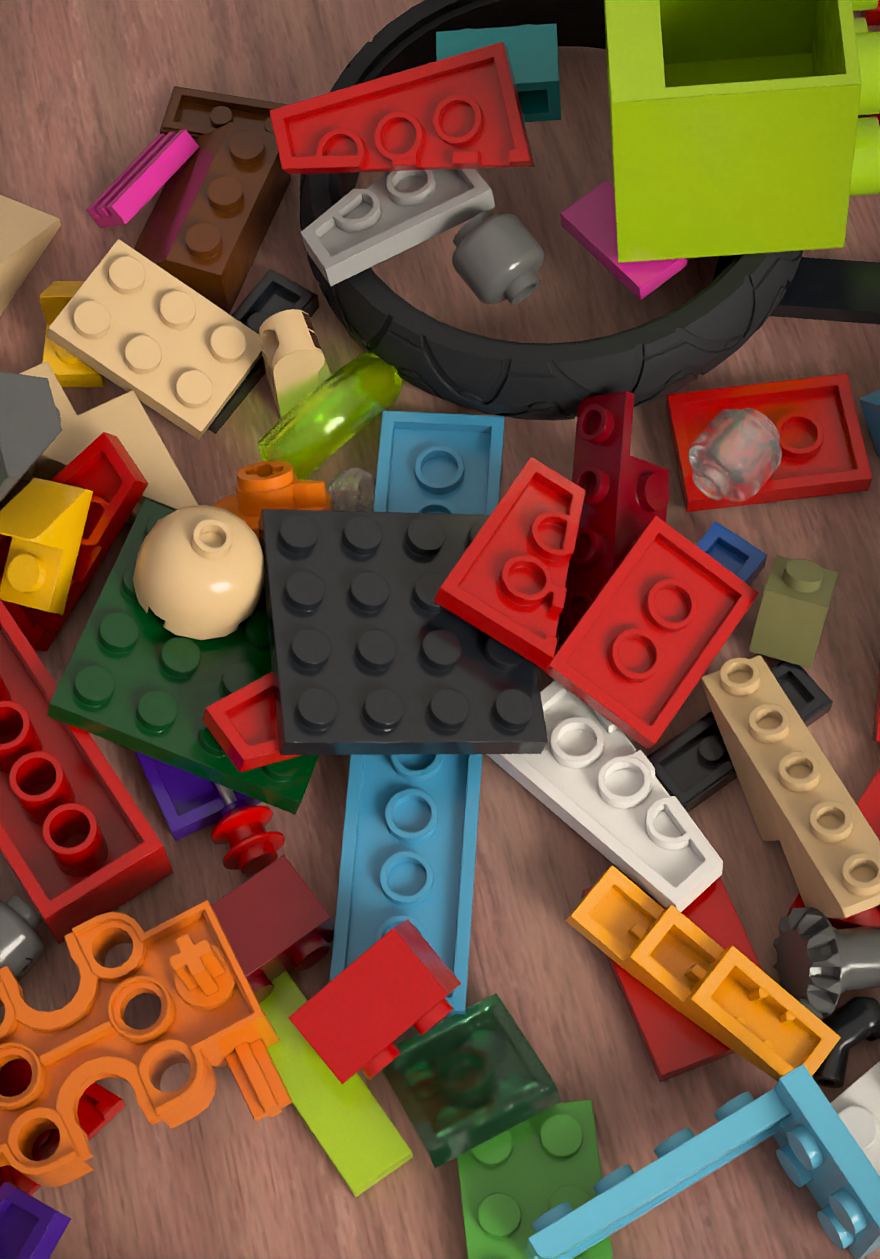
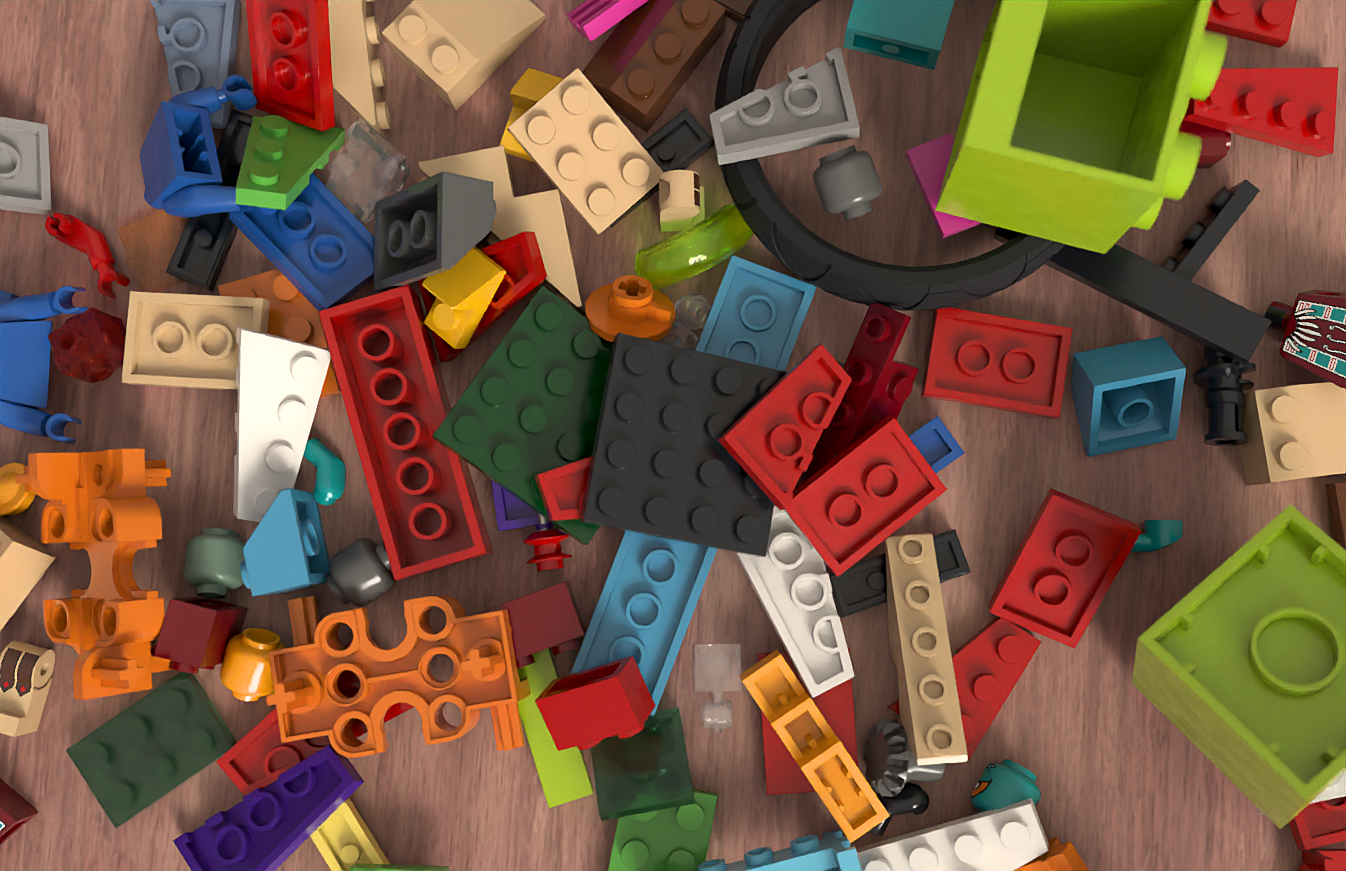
camera: 15 degrees right, 20 degrees up
(200, 572) = (563, 362): tan cylinder -> none
(422, 118) = (826, 52): red wing -> none
(535, 930) = (716, 670): none -> clear plate
(735, 454) = (968, 377): clear head -> none
(793, 611) = (967, 504): olive brick -> none

